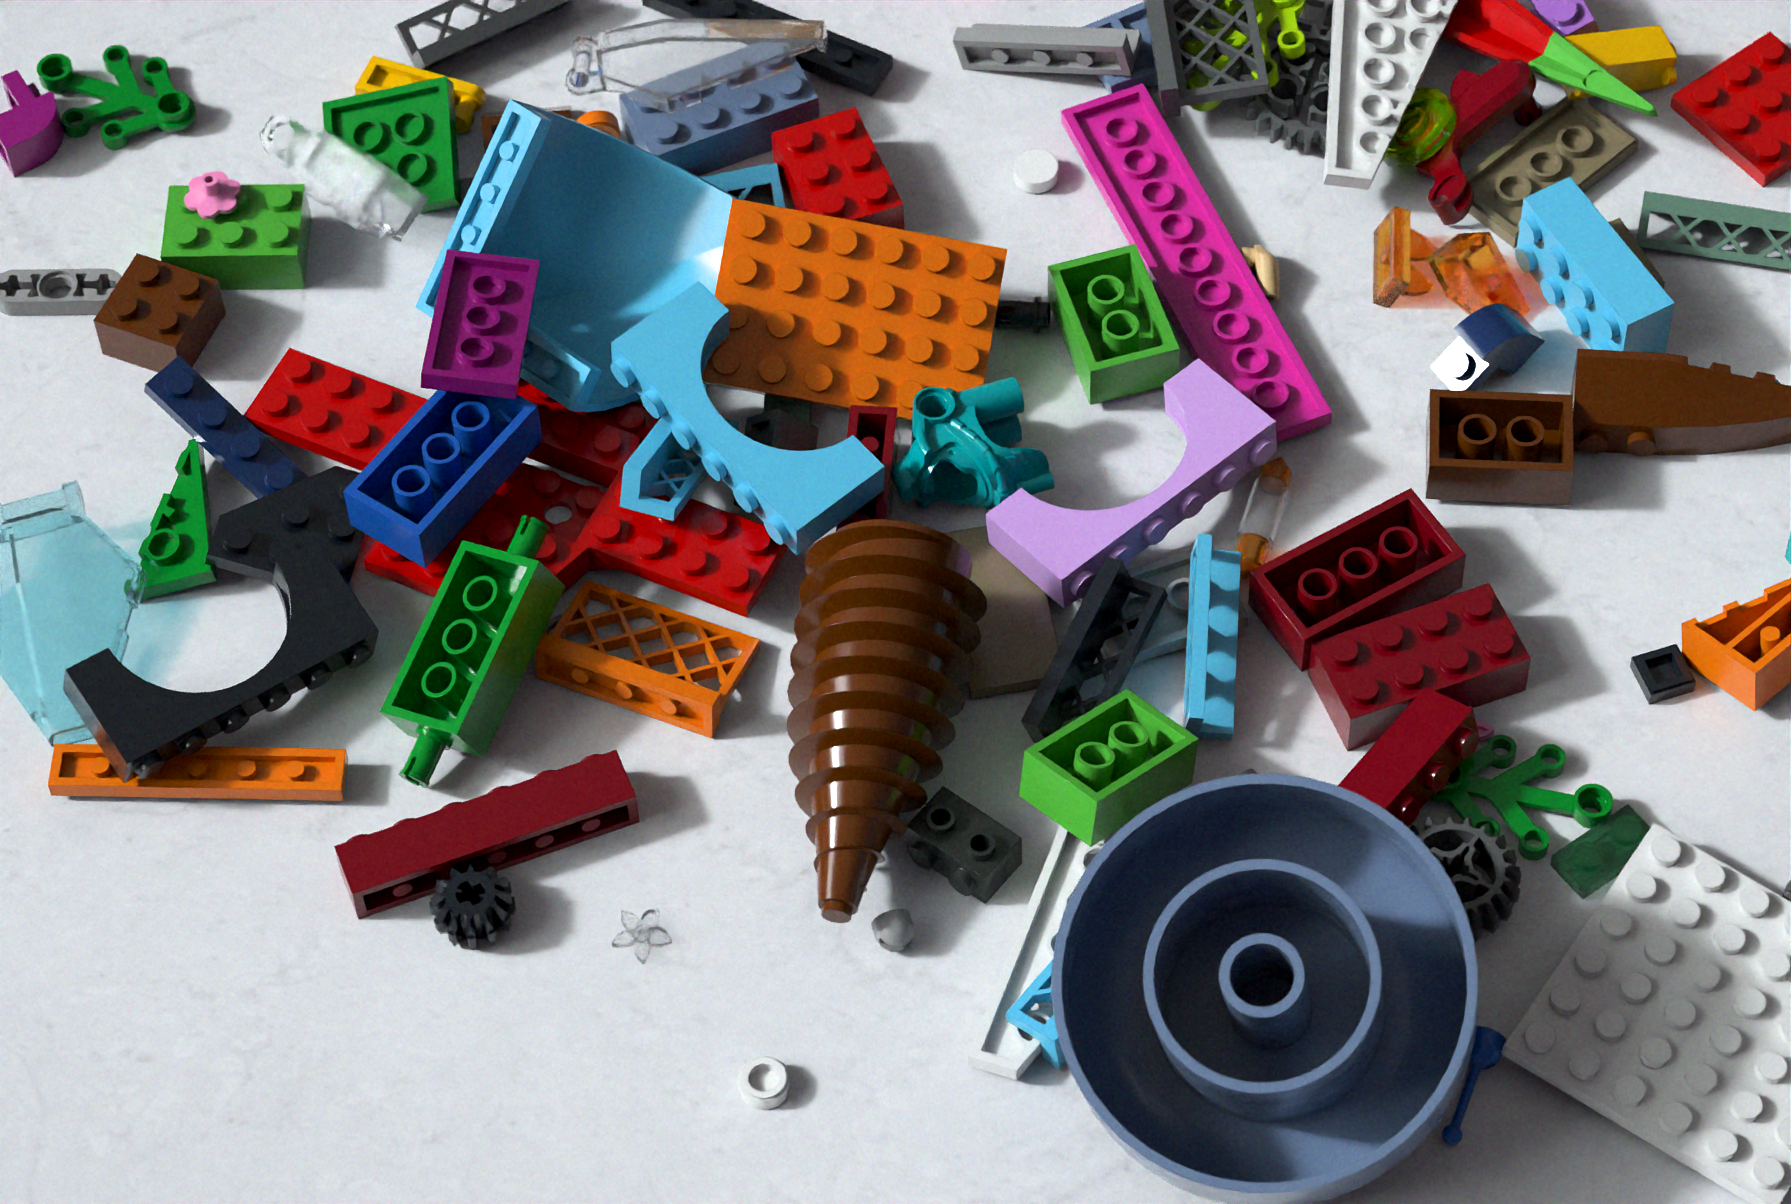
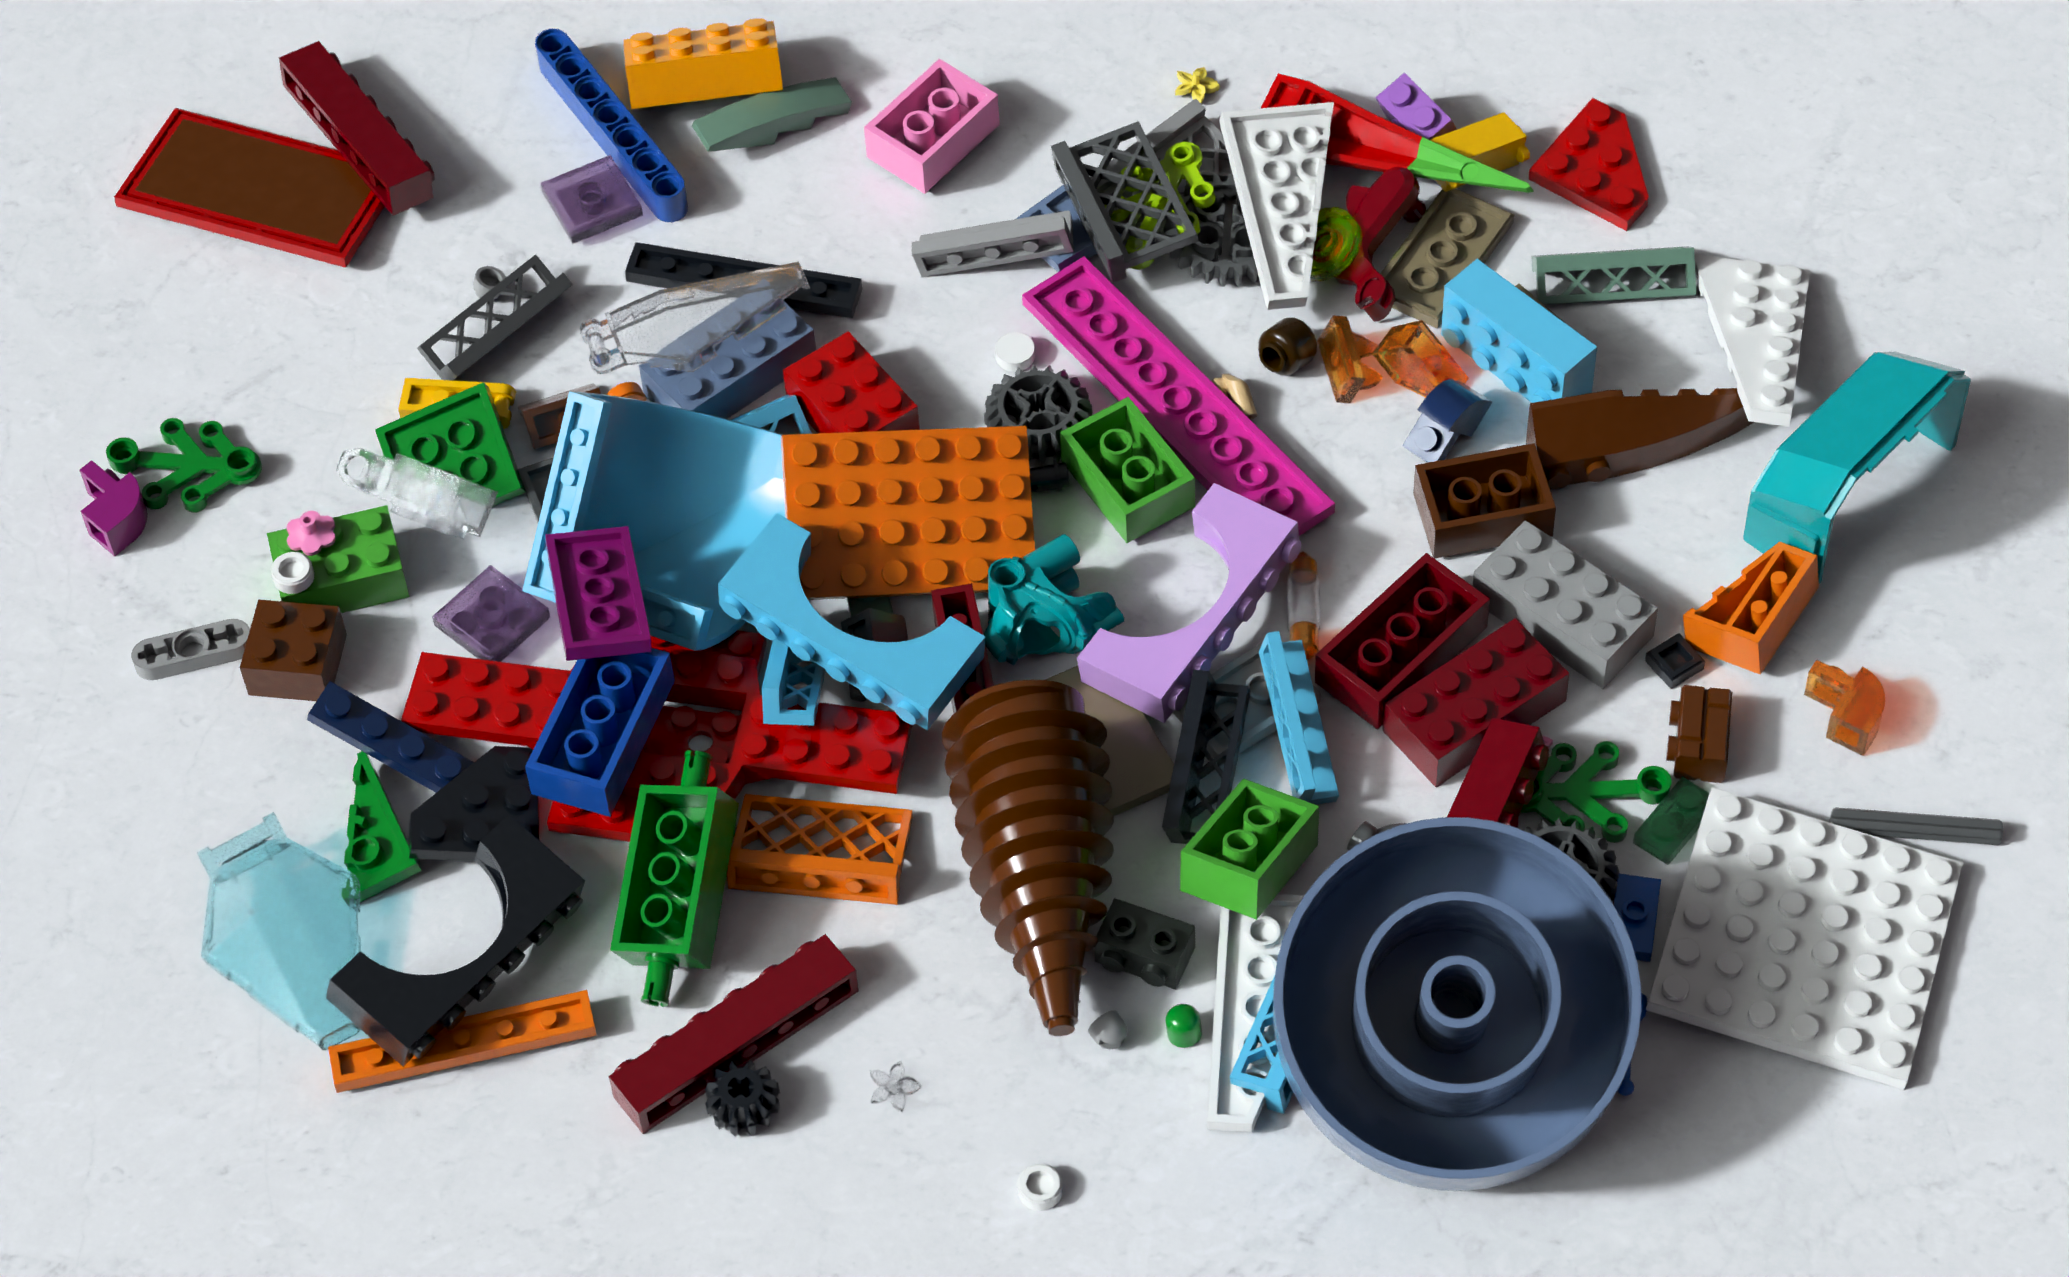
camera: 15 degrees left, 0 degrees up
(178, 232) = (292, 572): none -> white tile
(377, 327) = (491, 616): none -> clear purple plate
(978, 945) = (1183, 1025): none -> green piece
(1037, 227) = (1034, 402): none -> dark grey gear
(1335, 230) = (1287, 346): none -> dark brown head
(1523, 948) = (1638, 906): none -> blue plate
(1555, 581) = (1566, 603): none -> light grey brick
(1664, 761) = (1701, 733): none -> reddish brown brick

